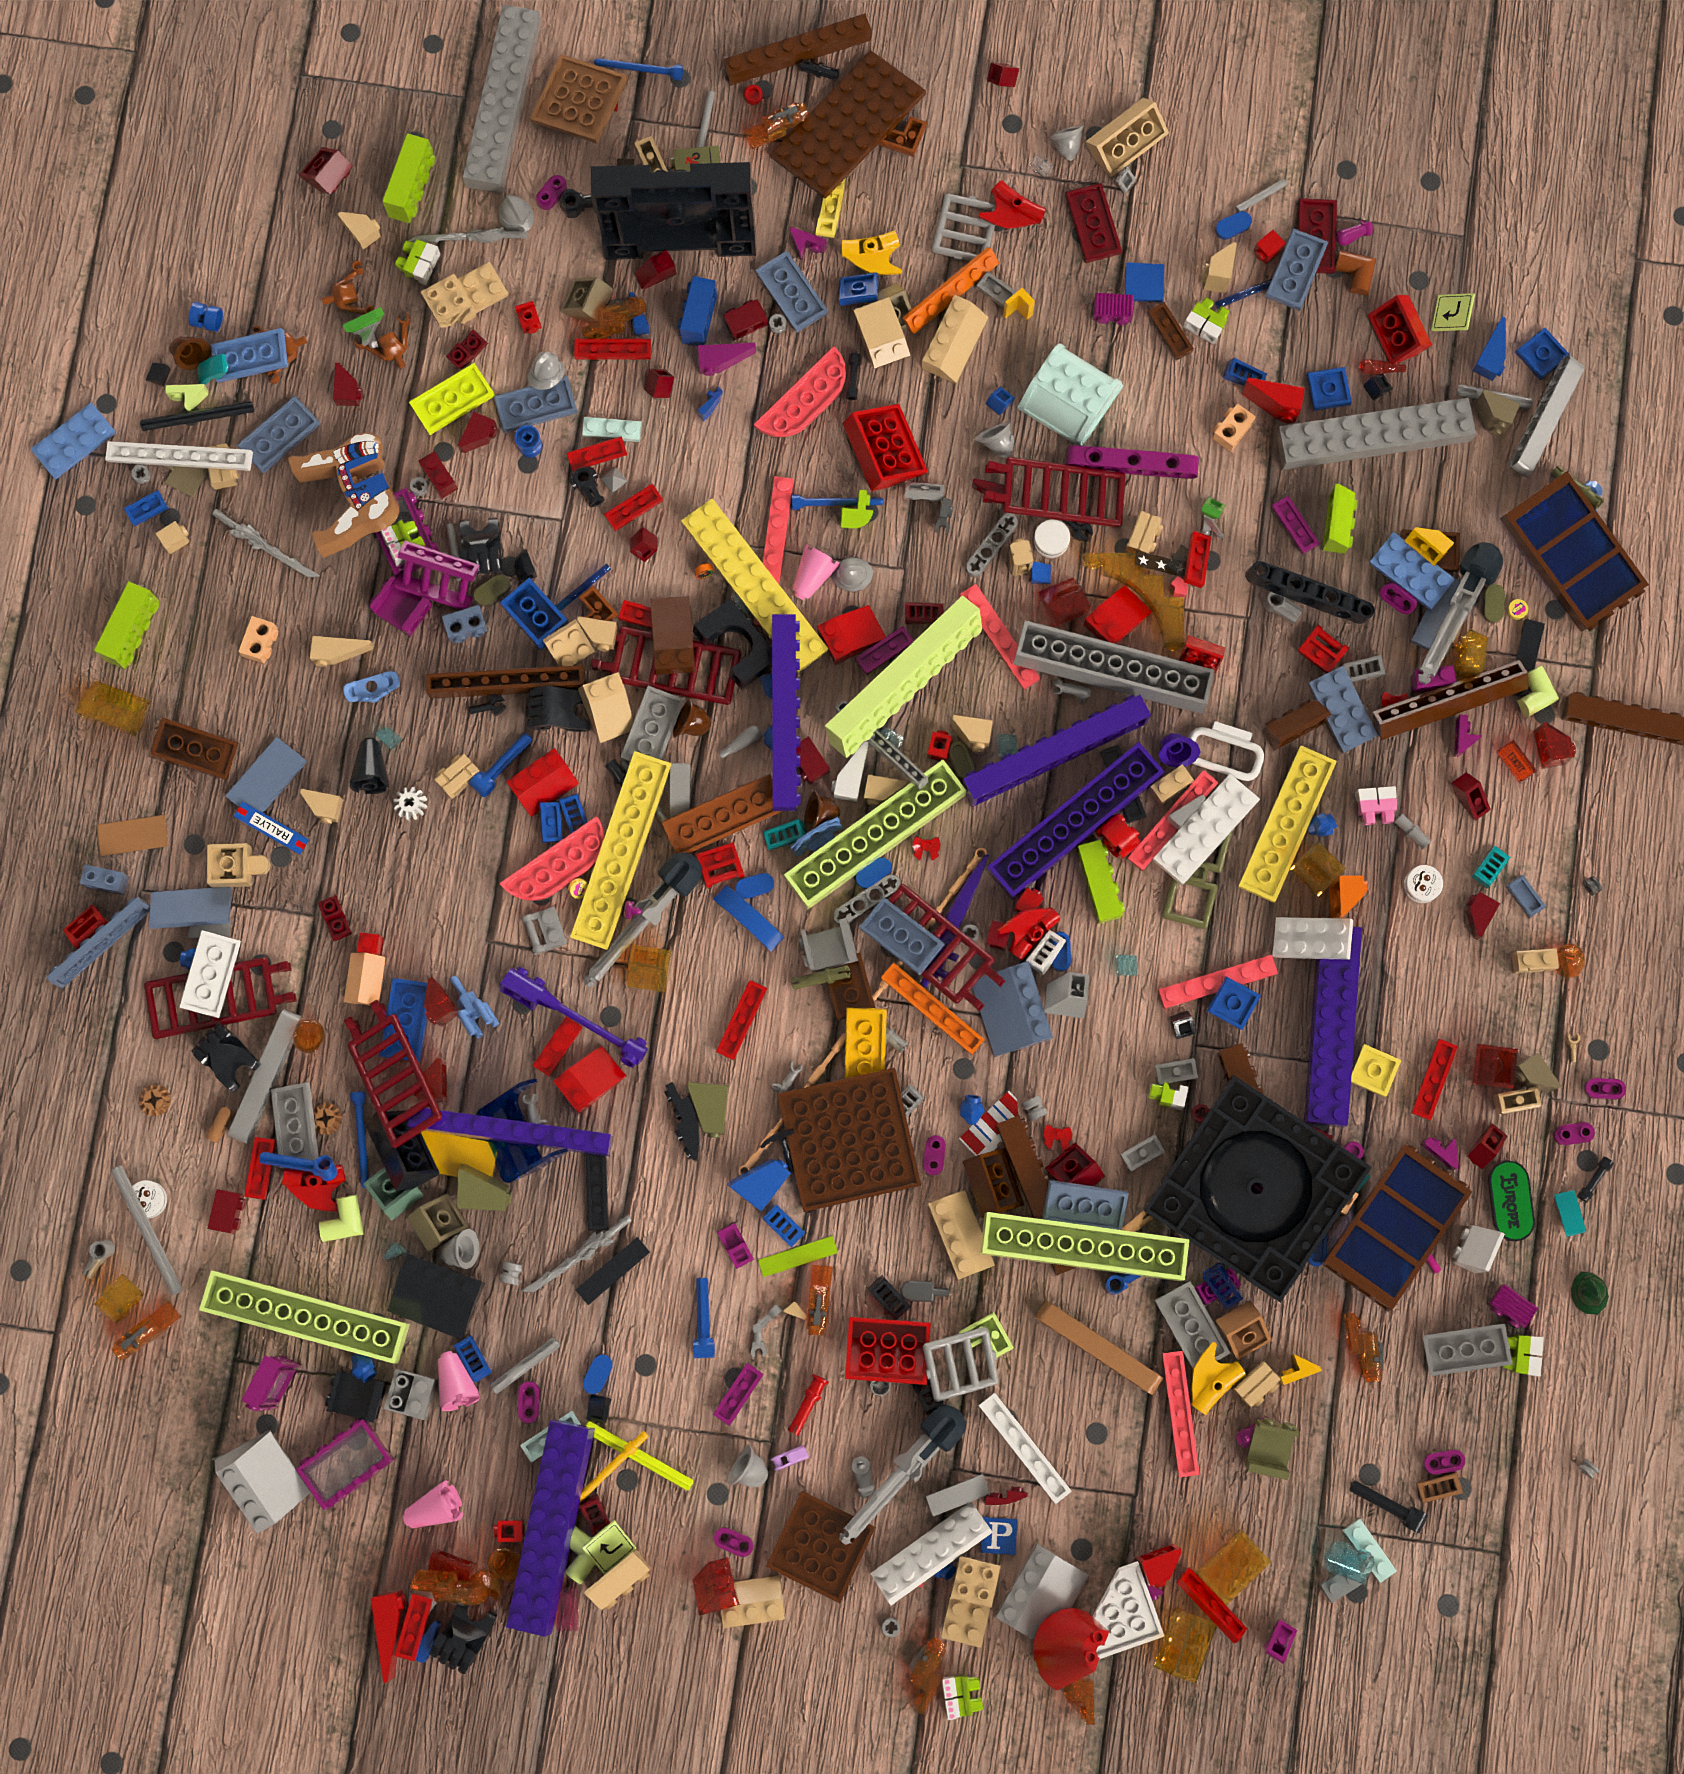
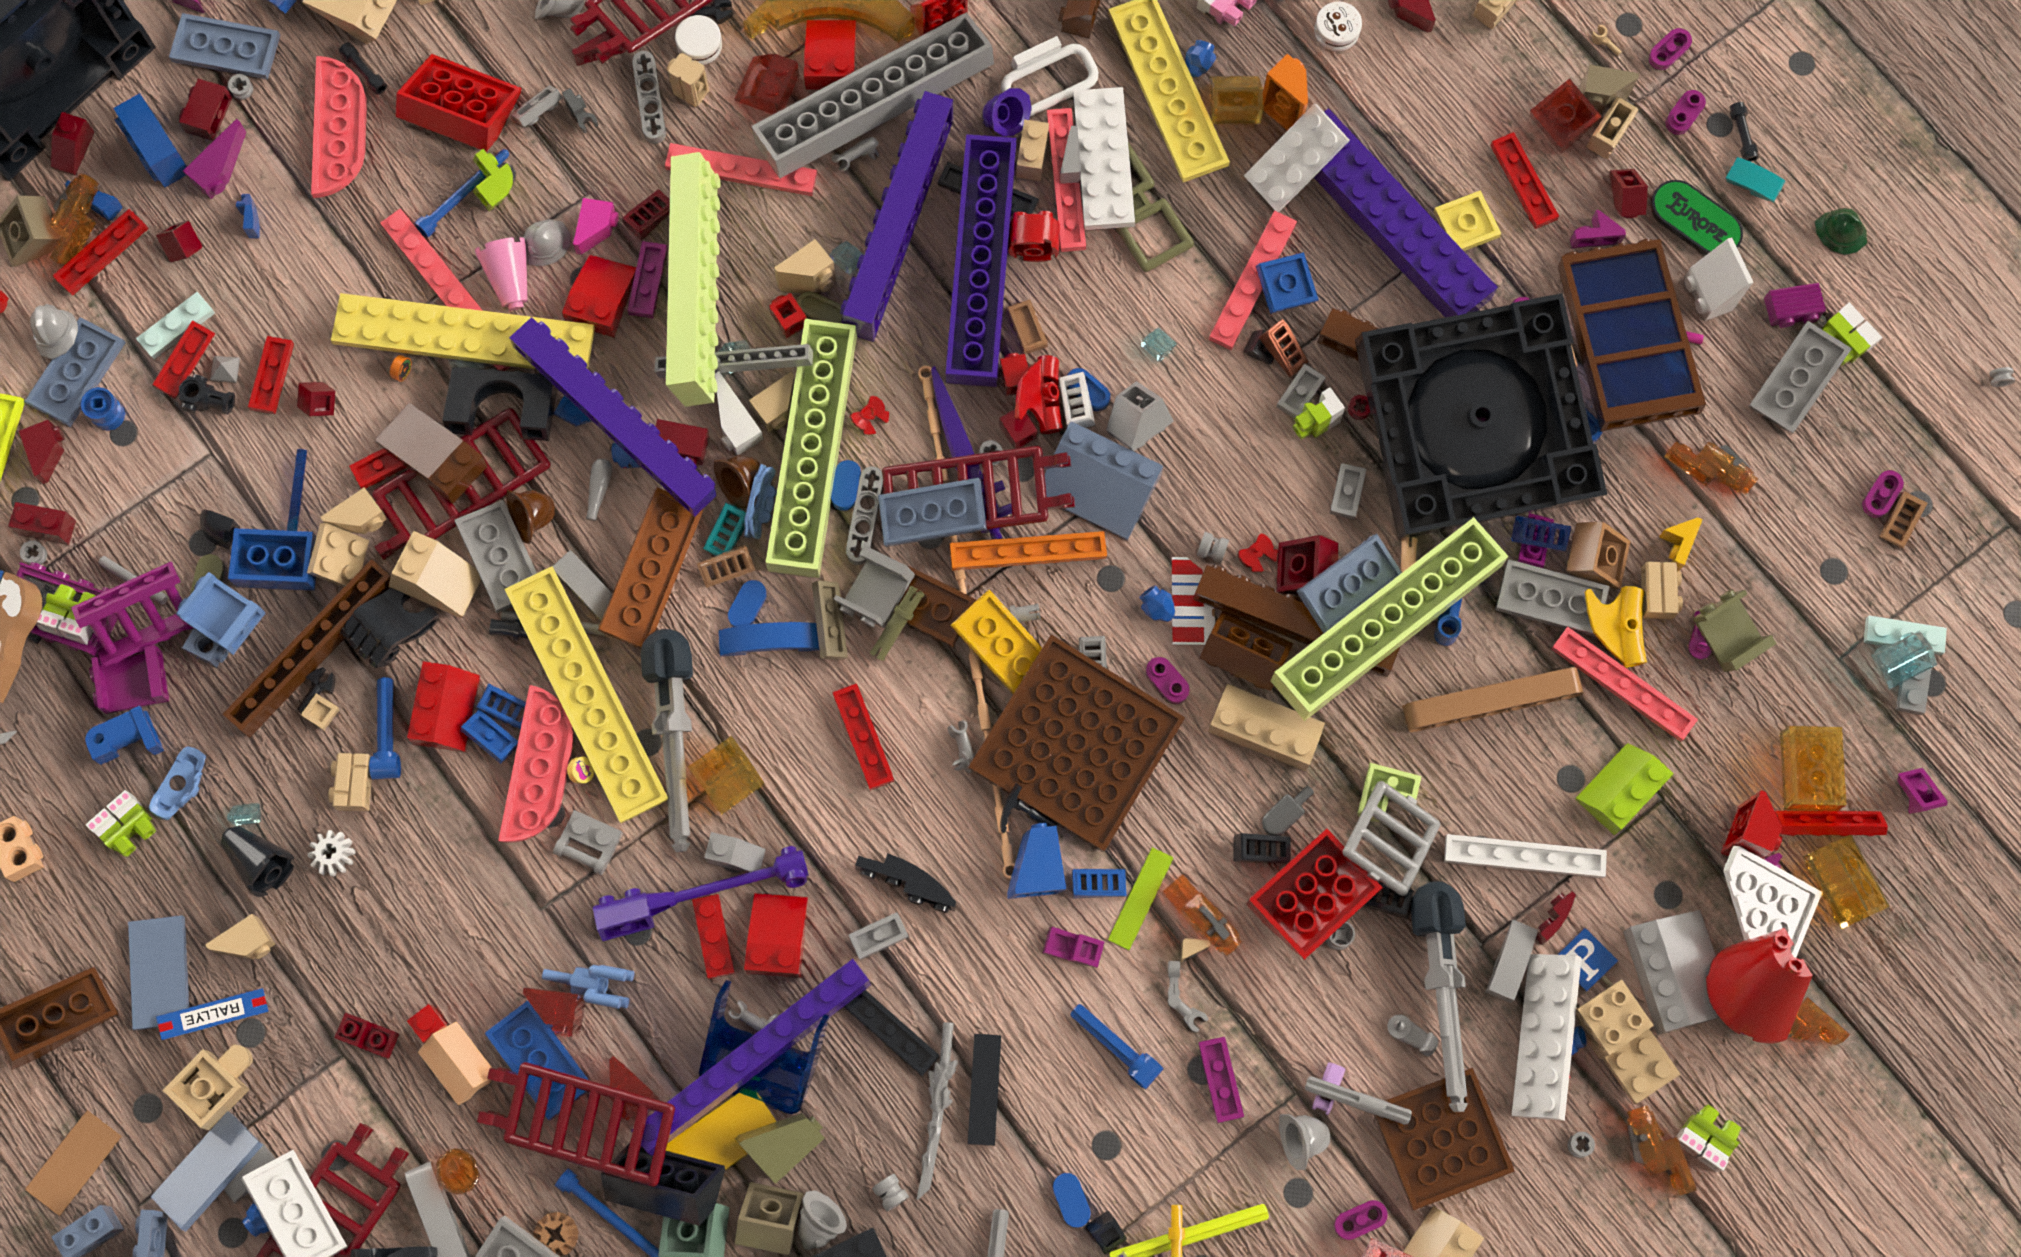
camera: 50 degrees left, 5 degrees down
(323, 679) = (113, 832): none -> lime hips
(335, 650) = (106, 780): tan slope -> none
(368, 630) = (120, 732): none -> blue piece
(477, 617) = (220, 613): none -> medium blue panel
(478, 721) = (320, 712): none -> tan plate
(482, 546) = (154, 545): black piece -> none
(597, 605) = (326, 493): dark orange brick -> none
(611, 1014) = (733, 853): none -> light grey slope
(629, 909) = (650, 739): magenta piece -> none
(641, 1134) = (878, 936): none -> light grey plate
(711, 1106) = (917, 843): olive slope -> none
(717, 859) = (687, 612): red plate -> none
(766, 847) = (749, 566): none -> medium nougat slope
(787, 939) = (829, 621): none -> dark tan plate
(796, 1480) = (1358, 1100): none -> light grey axle
(812, 1395) = (1288, 1009): red pin -> none
(887, 590) = (594, 224): none -> dark pink slope
(1040, 573) = (720, 80): blue slope -> none
(1064, 882) = (1027, 327): none -> medium nougat tile
(1100, 882) = (1058, 293): lime brick -> none
(1118, 1467) = (1623, 787): none -> lime slope
(1186, 1031) = (1273, 345): none -> copper slope
(1411, 1517) = (1909, 569): black axle -> none

